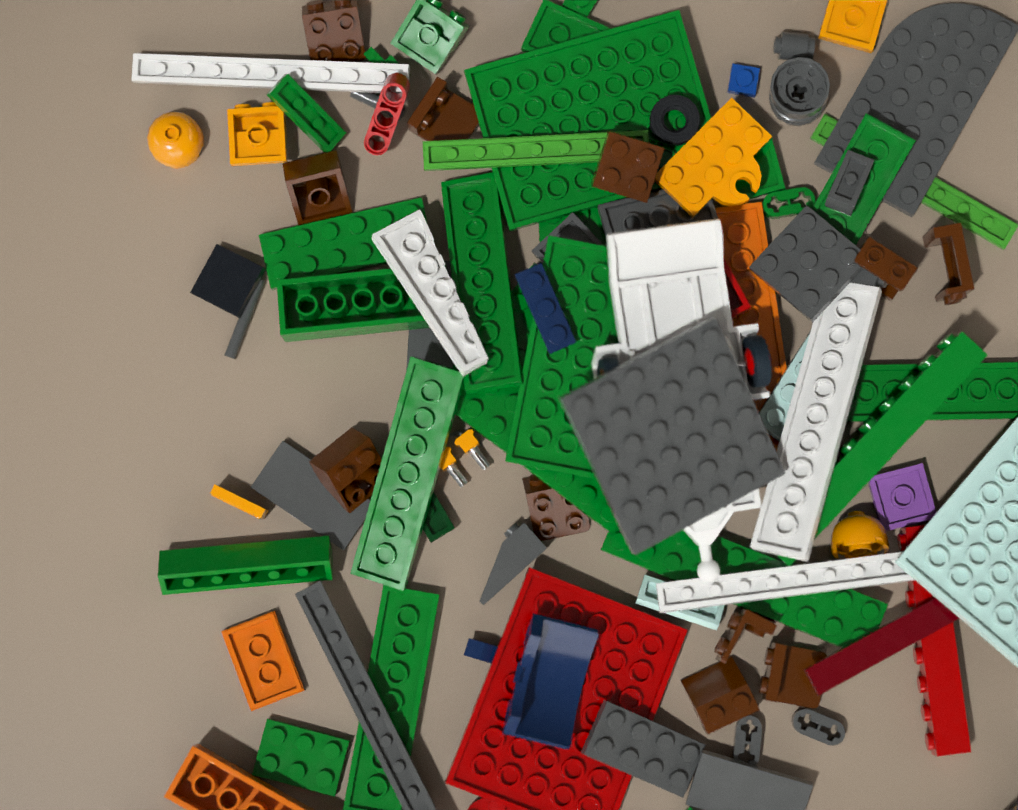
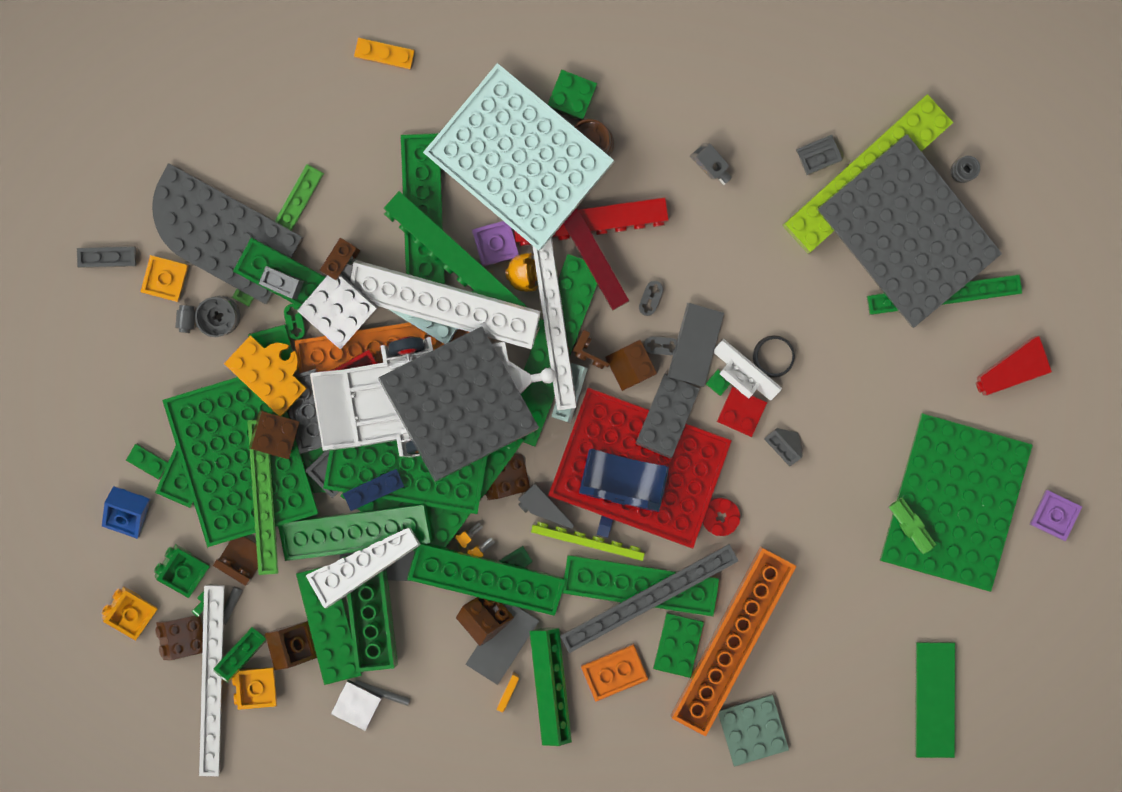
camera: 90 degrees left, 5 degrees up
(175, 139) = (259, 744): light orange cylinder -> none
(388, 102) = (231, 599): red beam -> none
(456, 637) = (580, 539): none -> lime plate
(681, 104) = (228, 402): black tyre -> none
(743, 80) = (209, 353): blue plate -> none
(785, 675) = (619, 321): reddish brown bracket -> none
(955, 259) = (316, 212): reddish brown panel -> none

